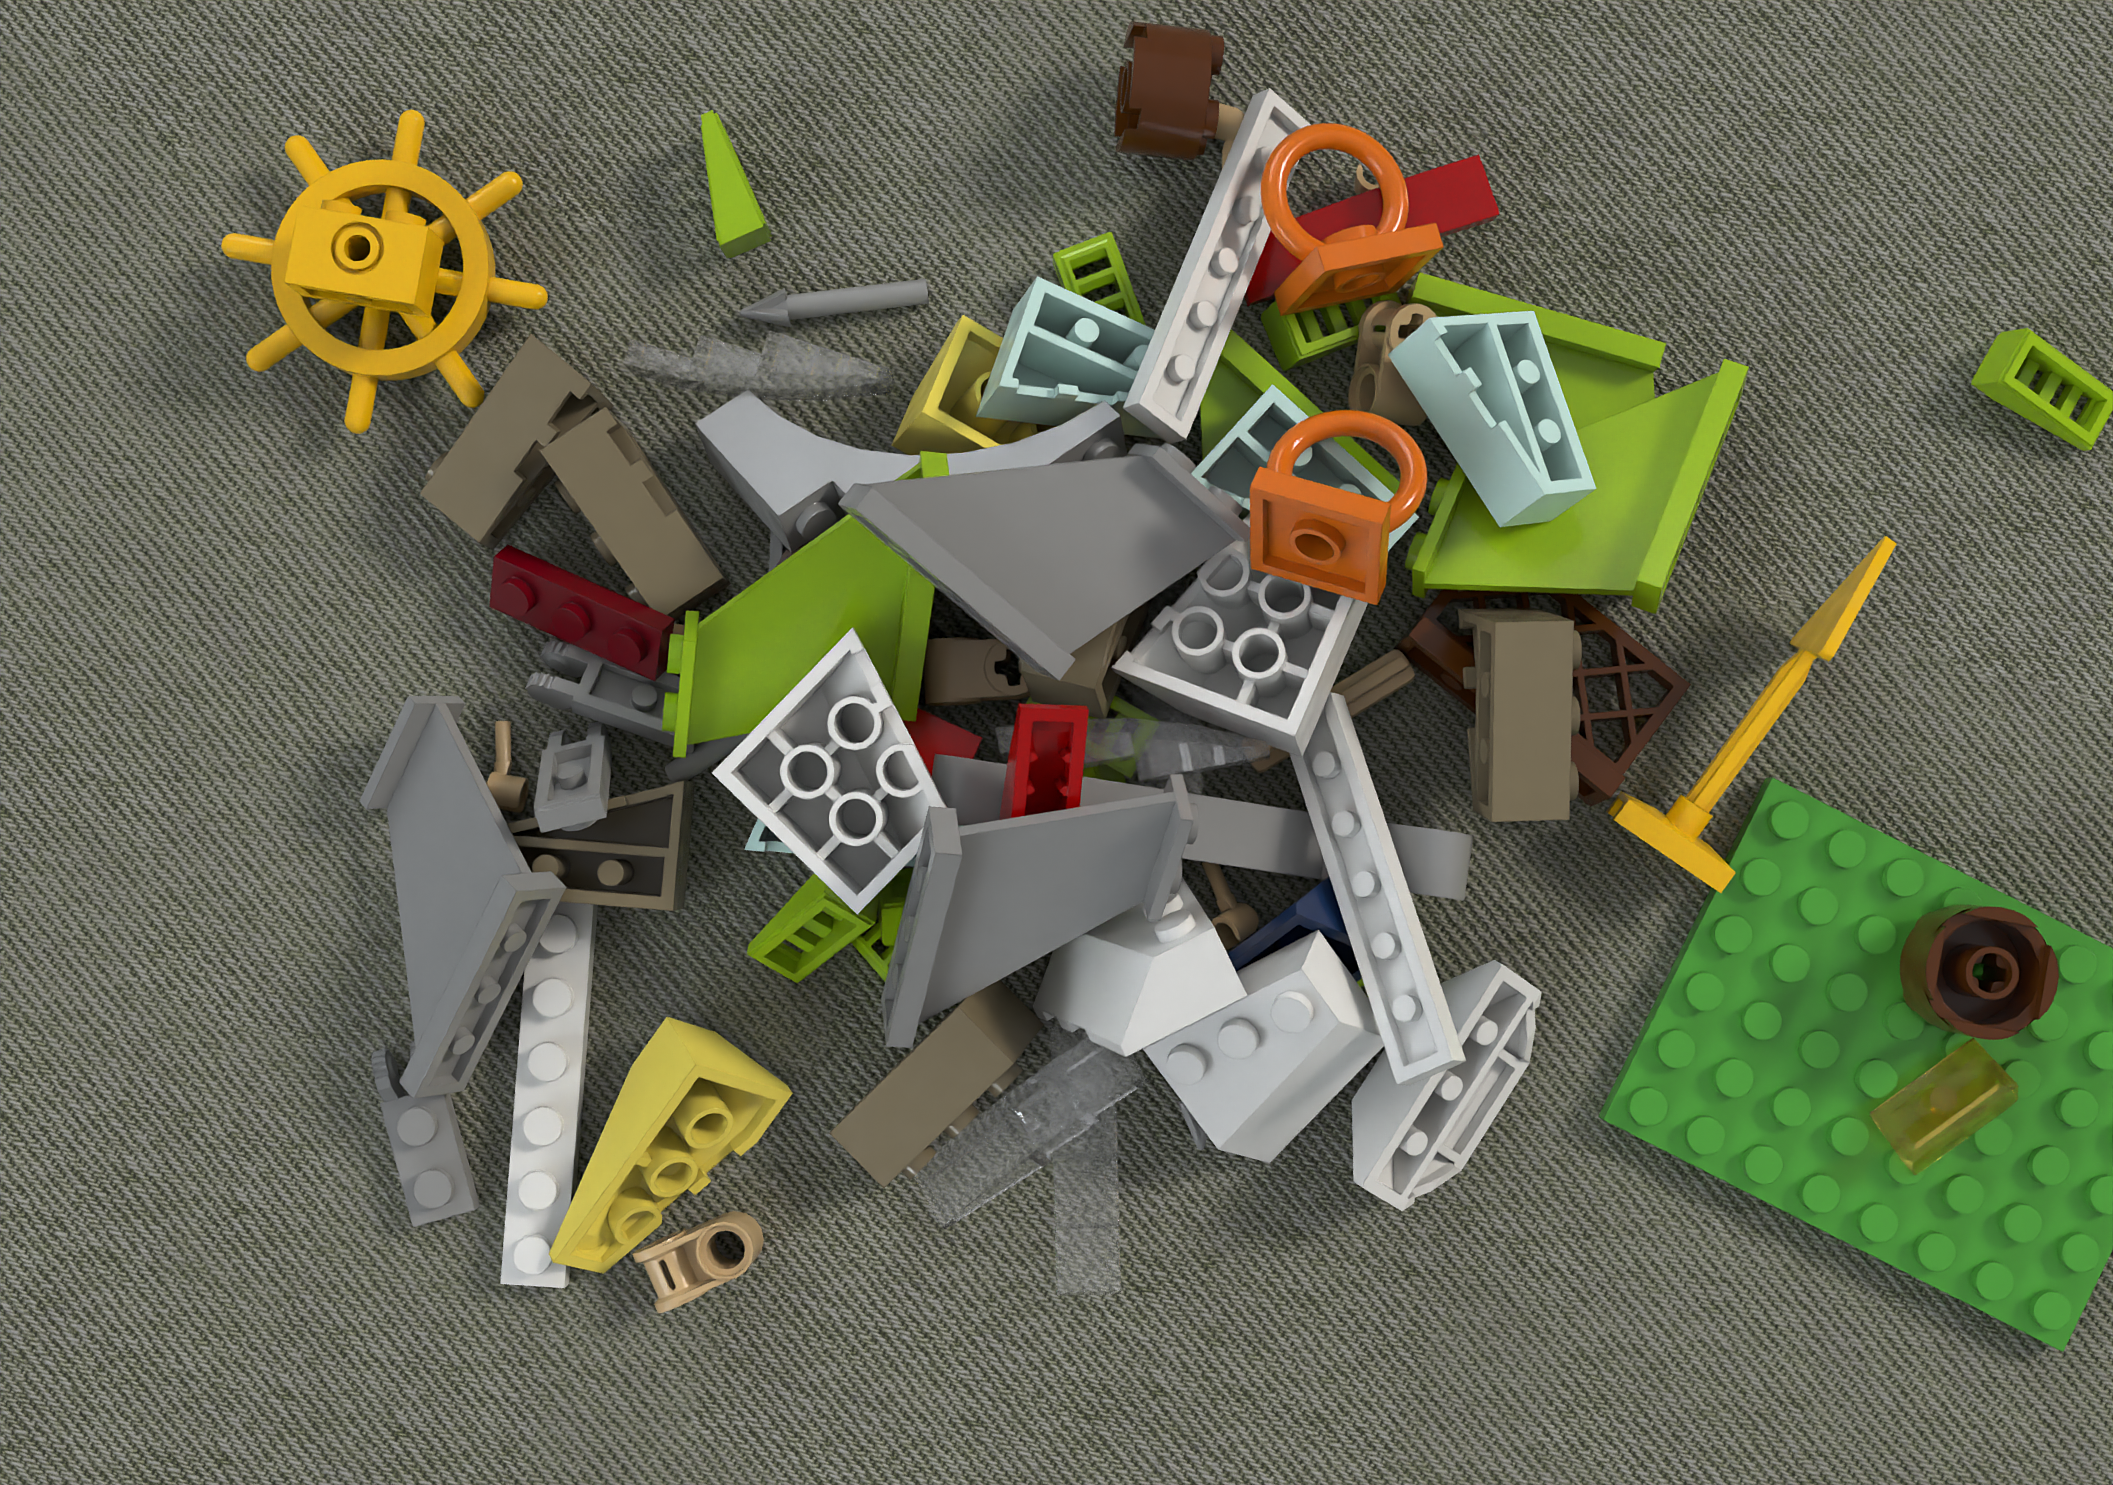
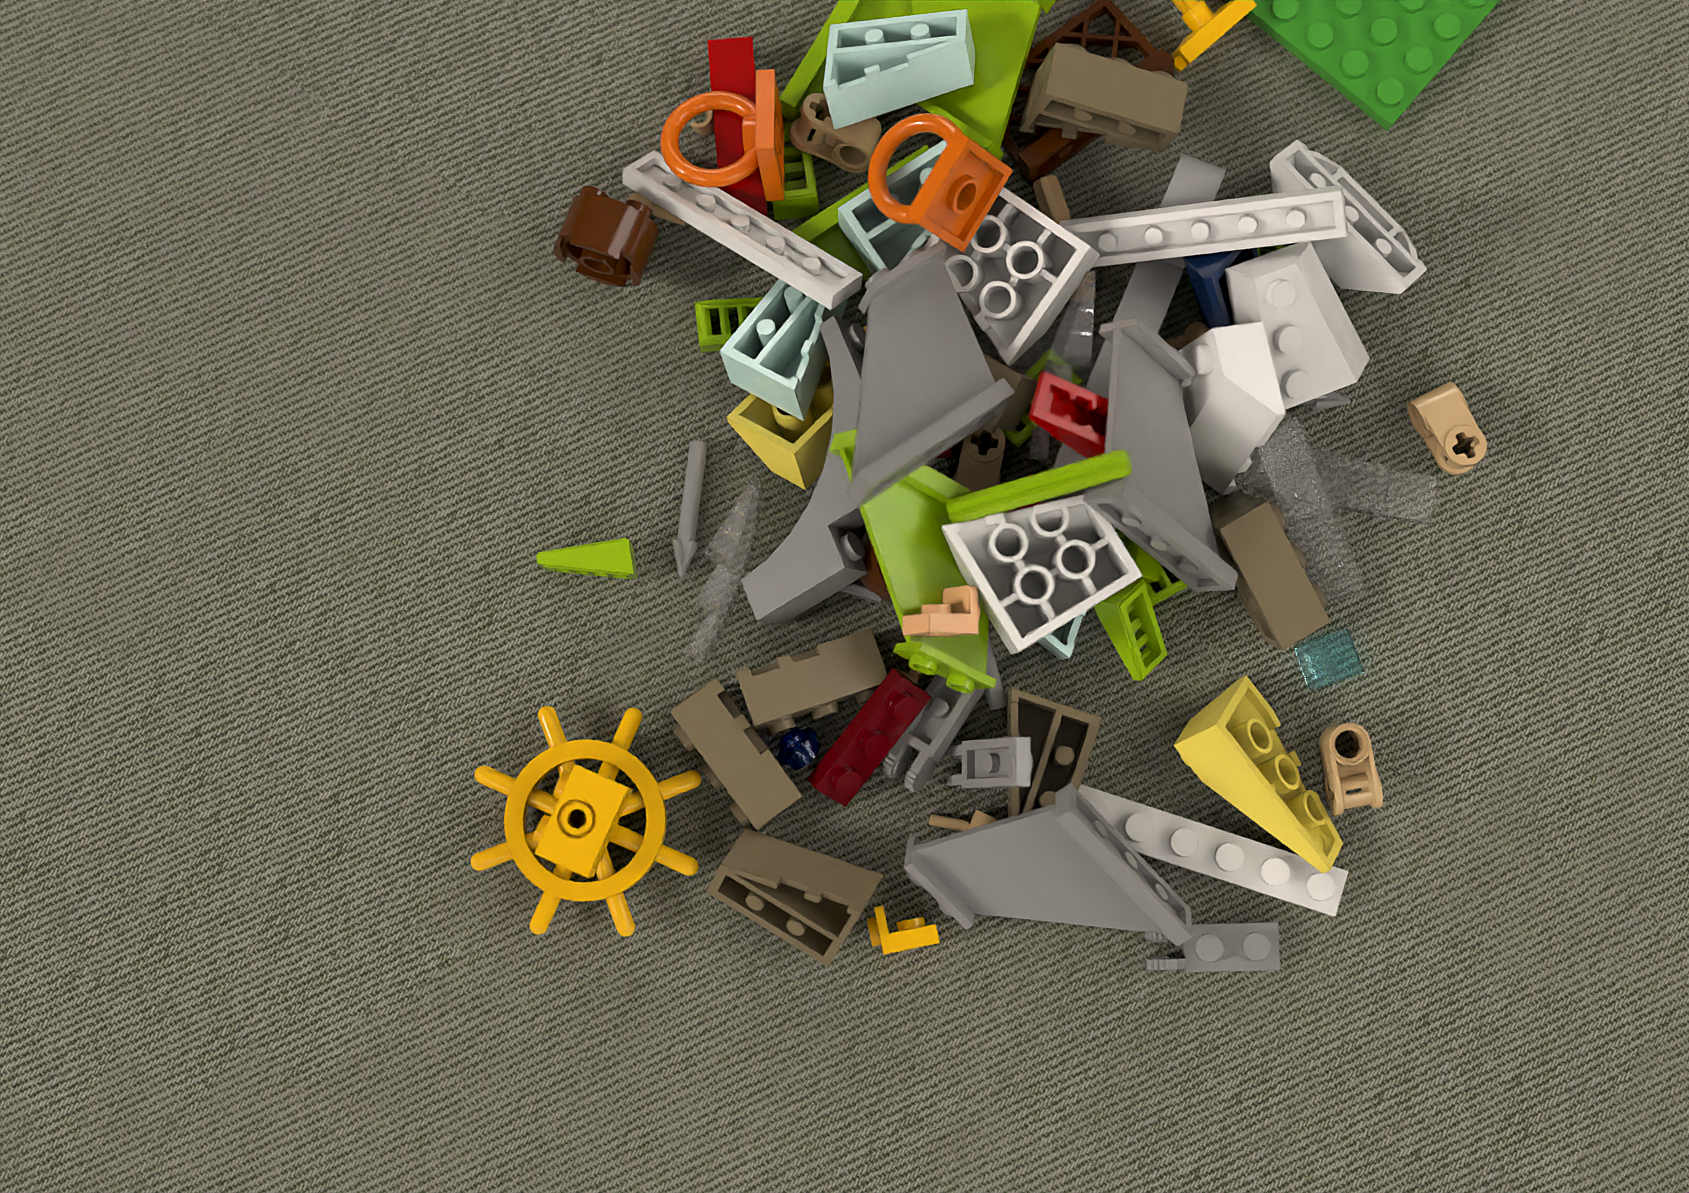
camera: 70 degrees left, 5 degrees down
(335, 729) = (910, 934): none -> yellow bracket
(351, 562) = (794, 892): none -> dark tan wedge
(549, 524) = (798, 747): none -> clear blue plate
(733, 668) = (953, 618): none -> light nougat bracket
(843, 1201) = (1329, 659): none -> clear light blue slope
(933, 745) = (1040, 486): none -> lime axle
(1206, 1281) = (1446, 422): none -> tan piece

